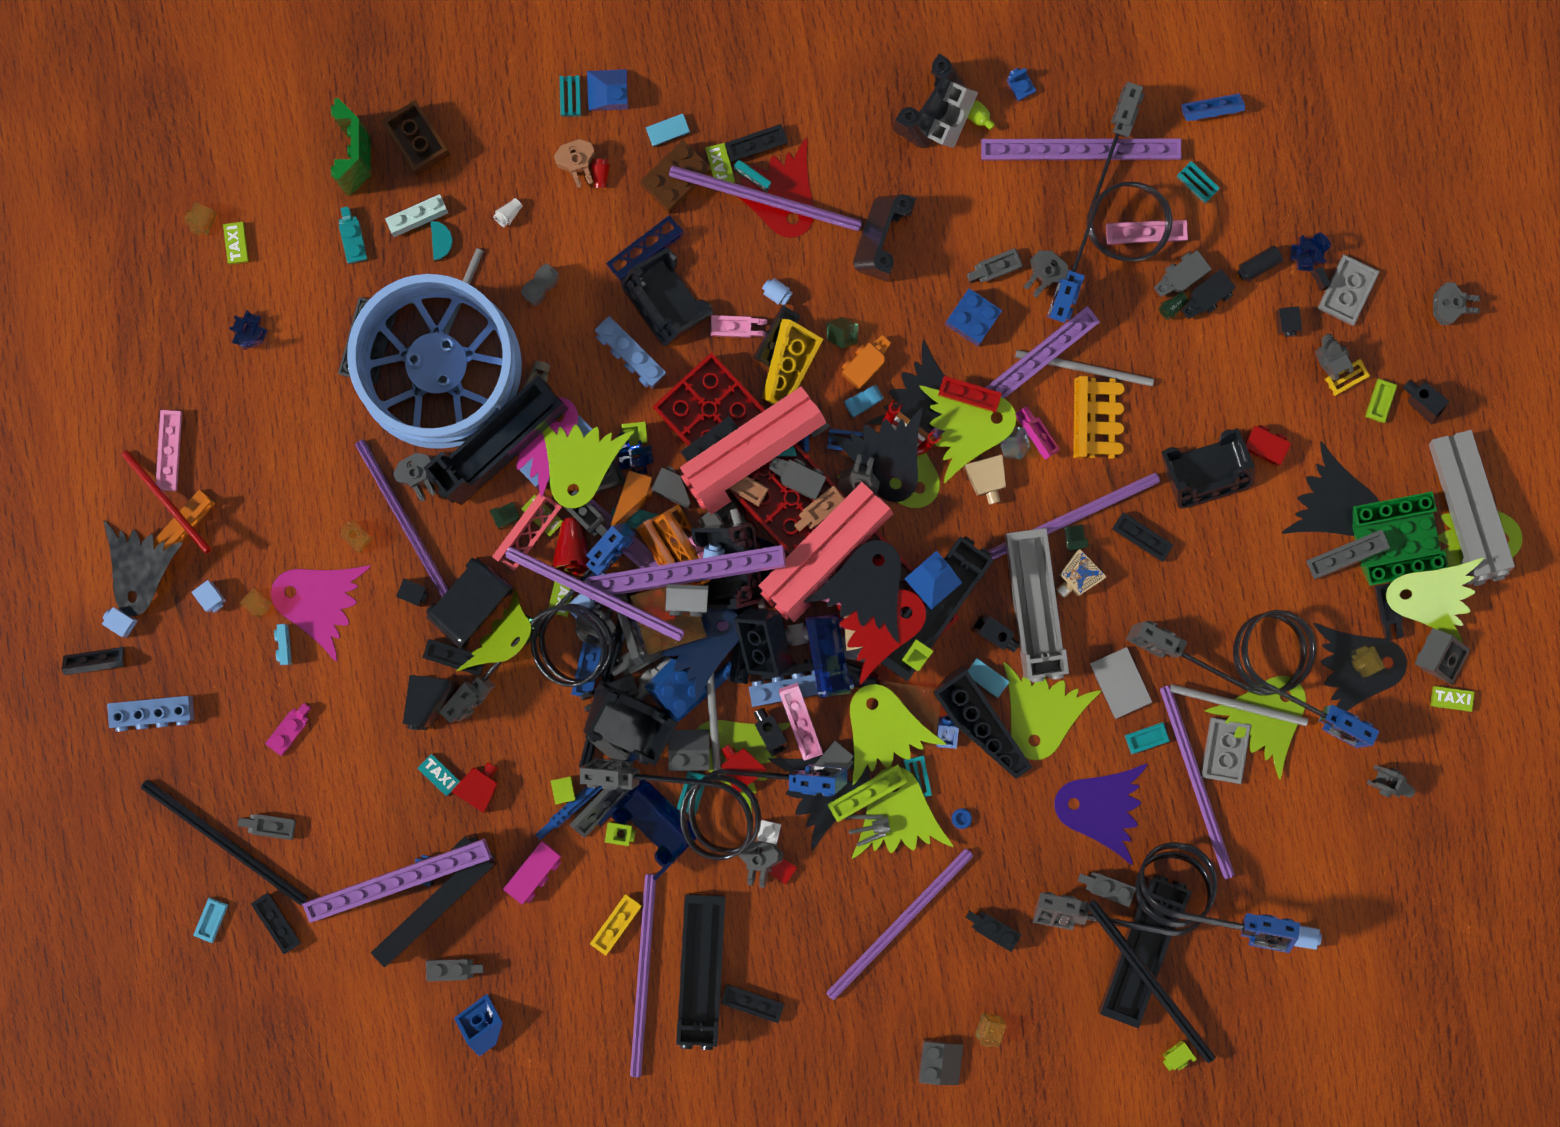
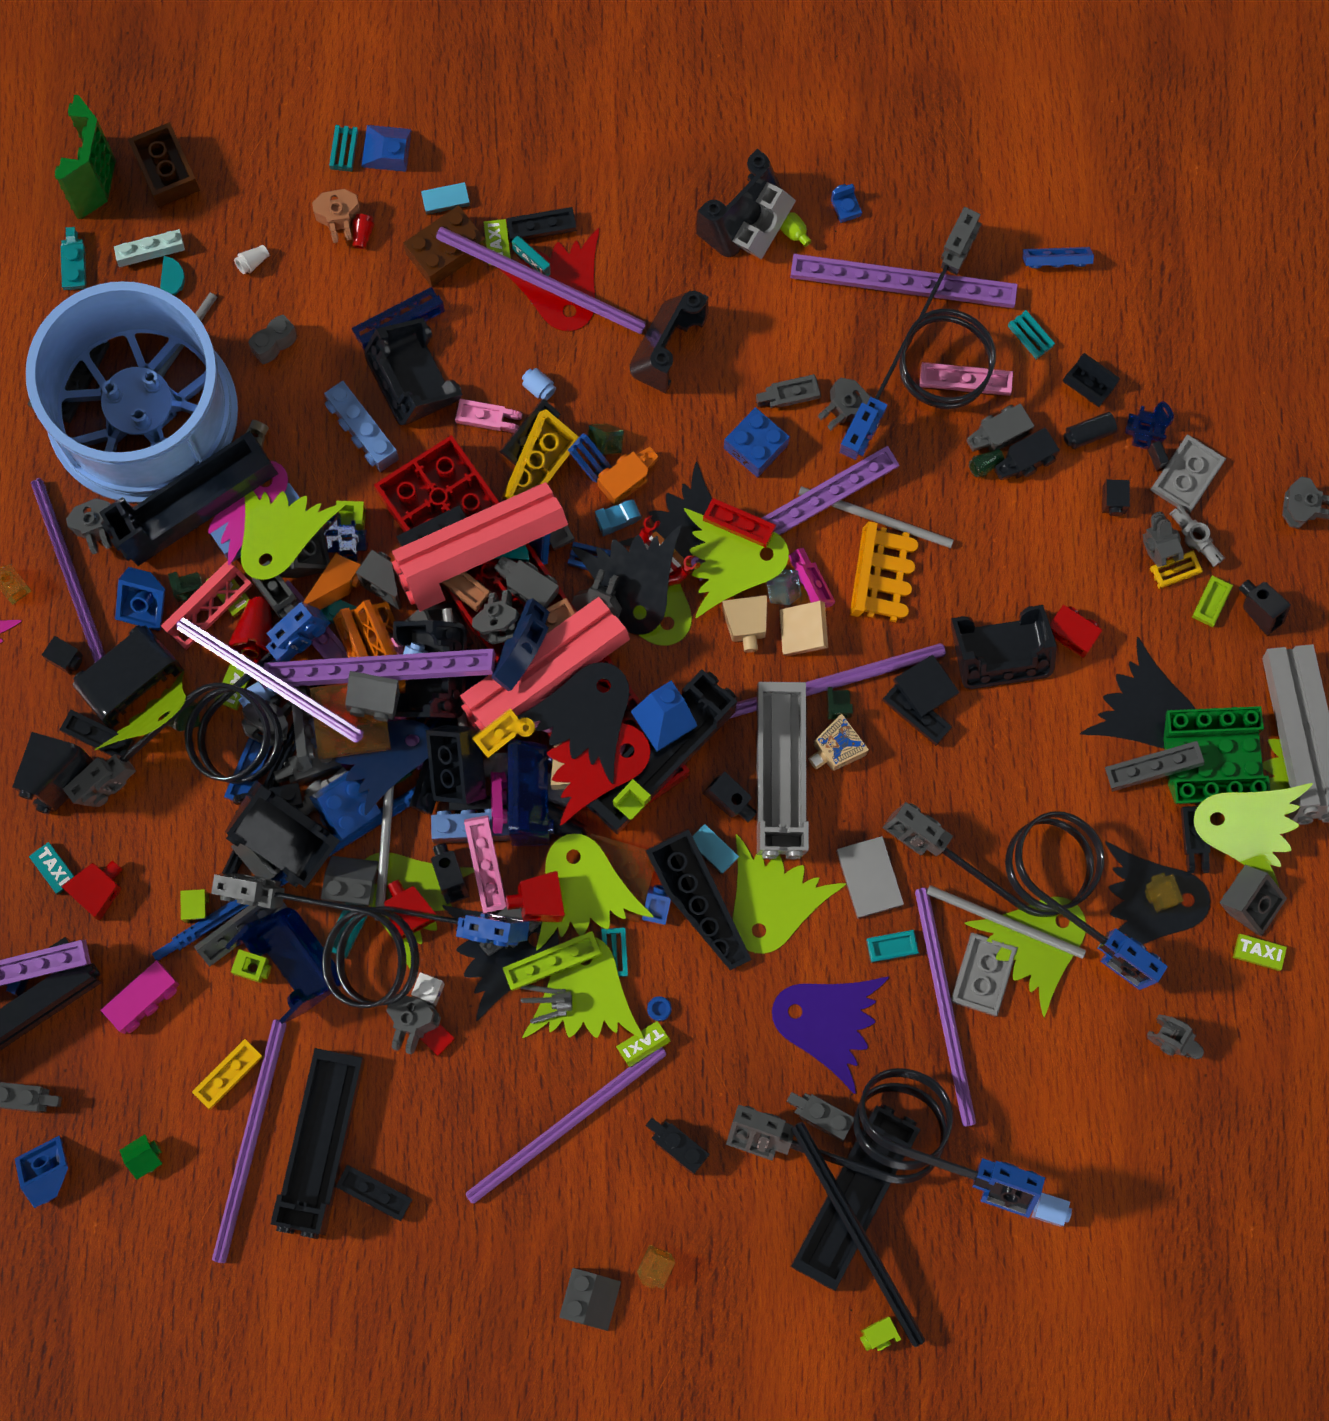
camera: 10 degrees right, 10 degrees down
(469, 534) = (140, 599): none -> blue slope
(558, 1002) = (141, 1156): none -> green brick
(780, 513) = (497, 618): none -> dark grey hinge
(800, 613) = (502, 731): none -> yellow hinge
(803, 666) = (498, 799): none -> dark pink hinge
(807, 536) = (523, 646): none -> dark blue slope
(841, 360) = (599, 468): none -> blue tile
(850, 745) = (539, 899): none -> red torso
(948, 855) = (636, 1049): none -> lime tile
(1037, 478) = (803, 628): none -> tan tile
(1147, 513) = (926, 686): none -> black tile
(1255, 218) = (1091, 380): none -> black bracket
(1370, 352) = (1189, 526): none -> light grey pin

